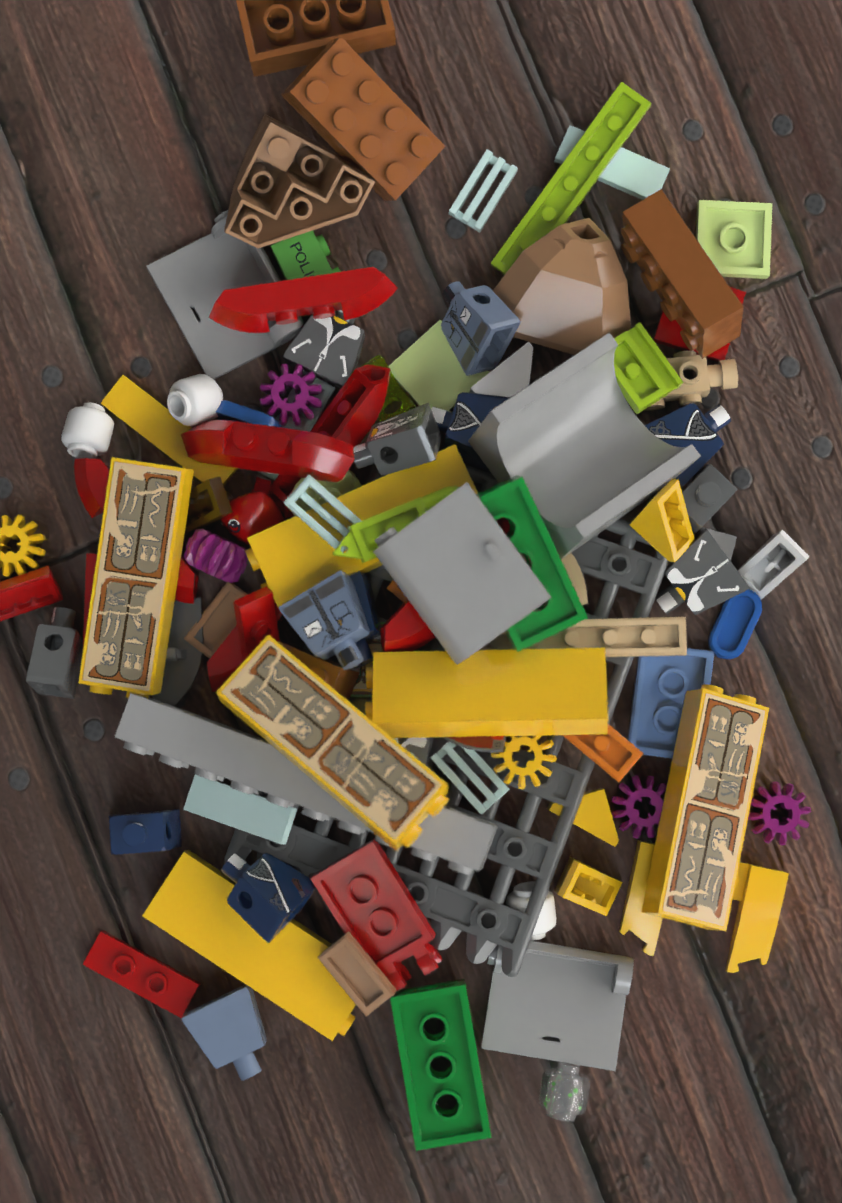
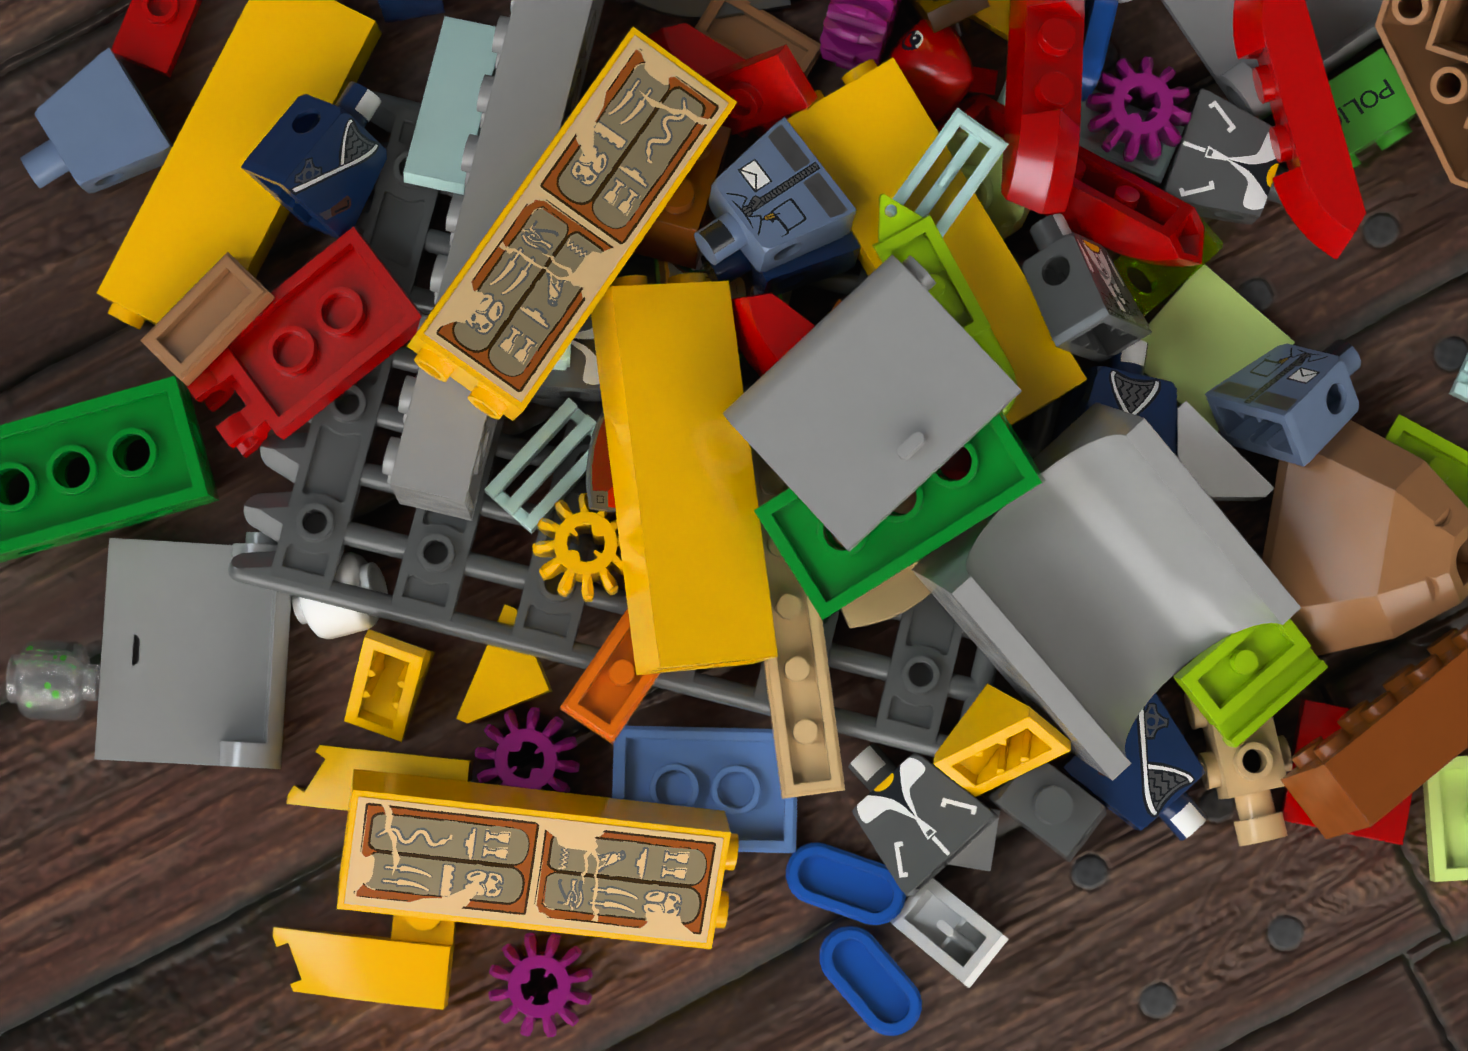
camera: 80 degrees right, 0 degrees up
(794, 615) = (870, 980): none -> blue tile

